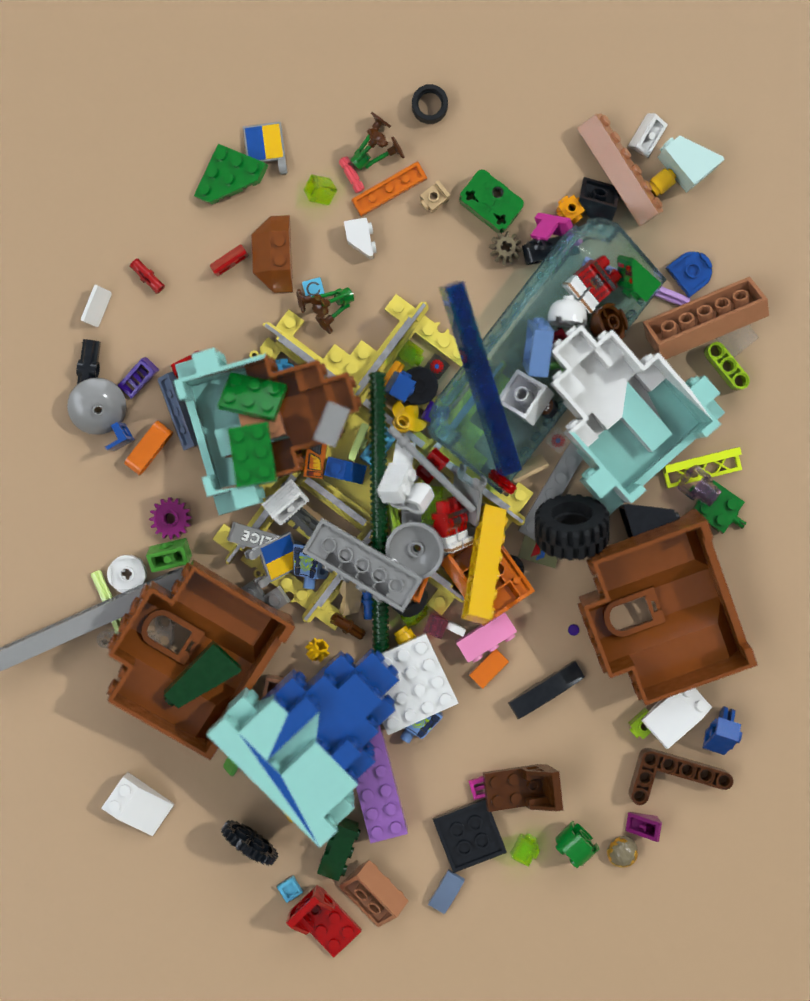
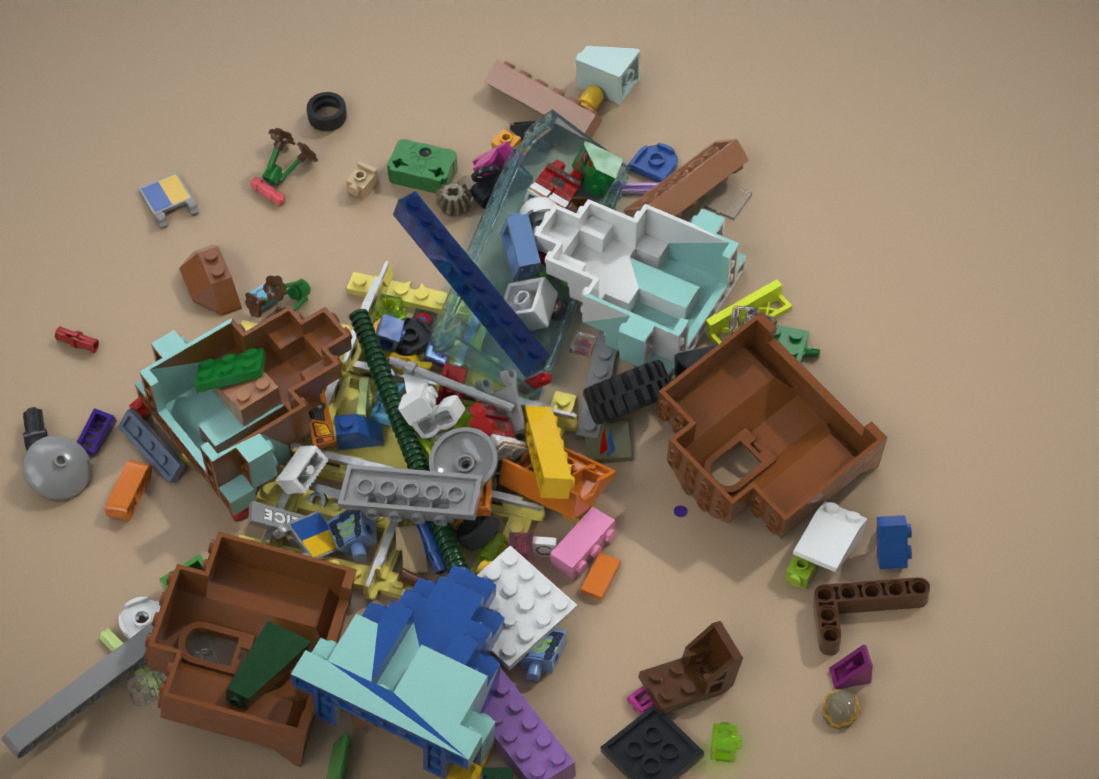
camera: 15 degrees left, 35 degrees down
(96, 306) = (28, 382): white slope -> none
(123, 434) = (94, 485): blue panel -> none
(160, 518) = (175, 546): magenta gear -> none
(229, 174) = (137, 225): green plate -> none
(229, 260) = (164, 300): red slope -> none
(252, 455) = (249, 408): green plate -> none
(320, 189) = (239, 211): clear neon green panel -> none
(331, 424) = (324, 349): light grey hinge -> none
(358, 236) = (295, 235): white slope -> none
(389, 189) = (311, 192): orange tile -> none
(530, 468) = (564, 378): tan slope -> none
(546, 690) = (674, 571): black slope -> none
(576, 844) = (780, 709): green brick -> none
(648, 134) = (559, 71): white slope -> none
(735, 370) = (737, 225): lime beam -> none

